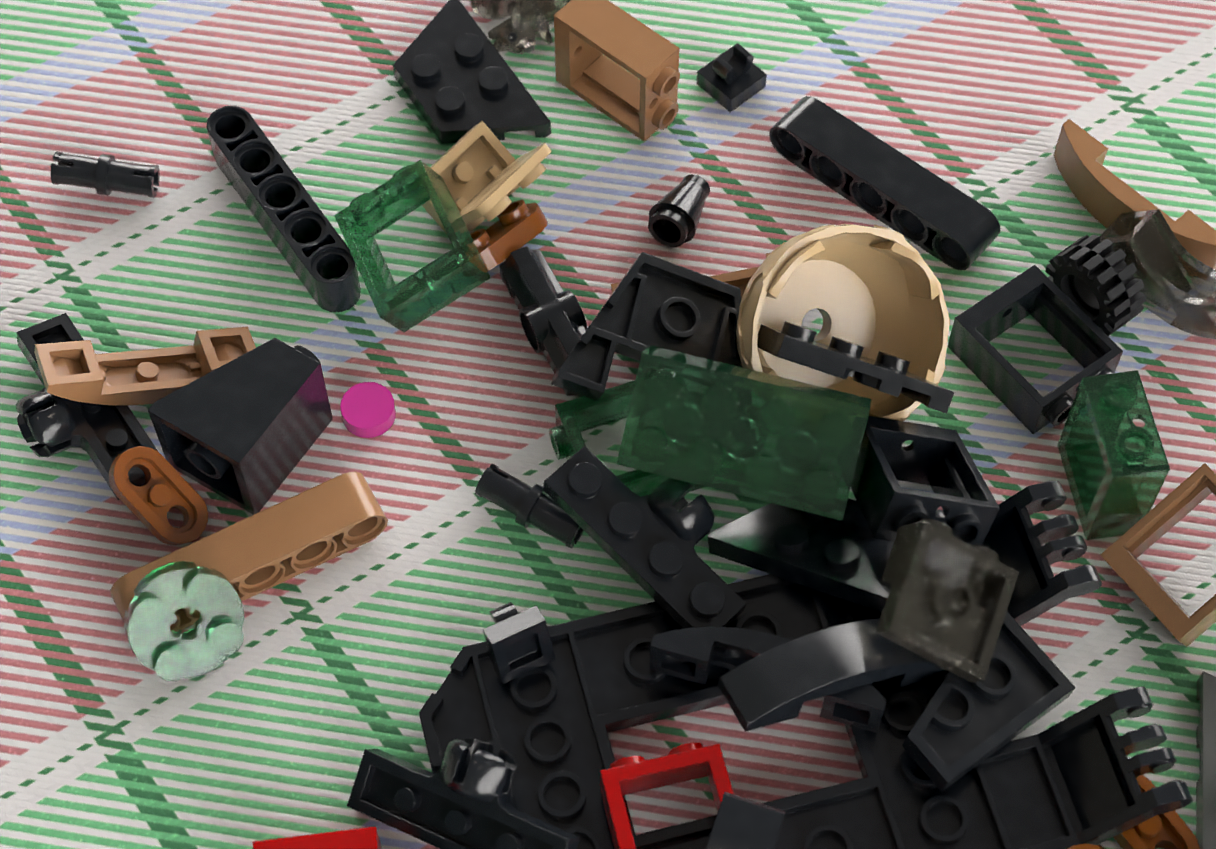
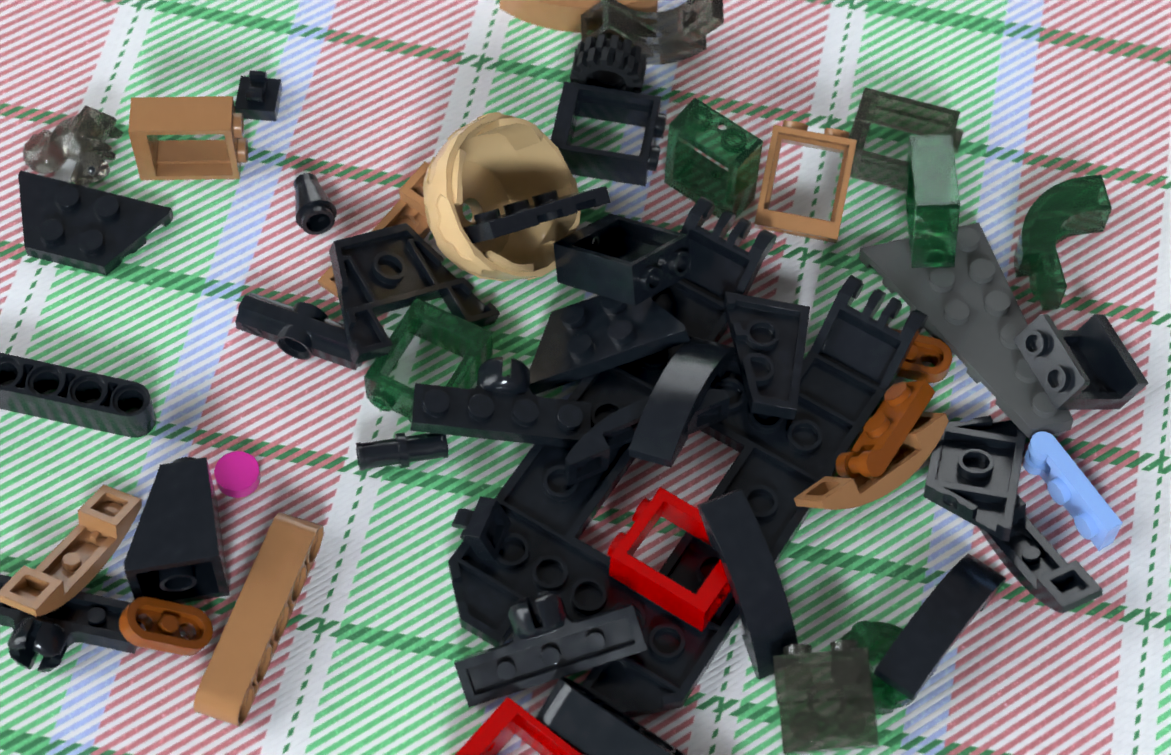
camera: 45 degrees left, 0 degrees up
(153, 610) = (288, 682): clear green plate -> none
(432, 285) = (212, 363): clear green window -> none
(484, 175) = (169, 281): tan bracket -> none
(513, 230) = (217, 305): dark orange plate -> none
(744, 432) = (508, 299): clear green brick -> none
(885, 183) = (418, 95): black beam -> none
(945, 598) = (708, 306): clear smoke plate -> none

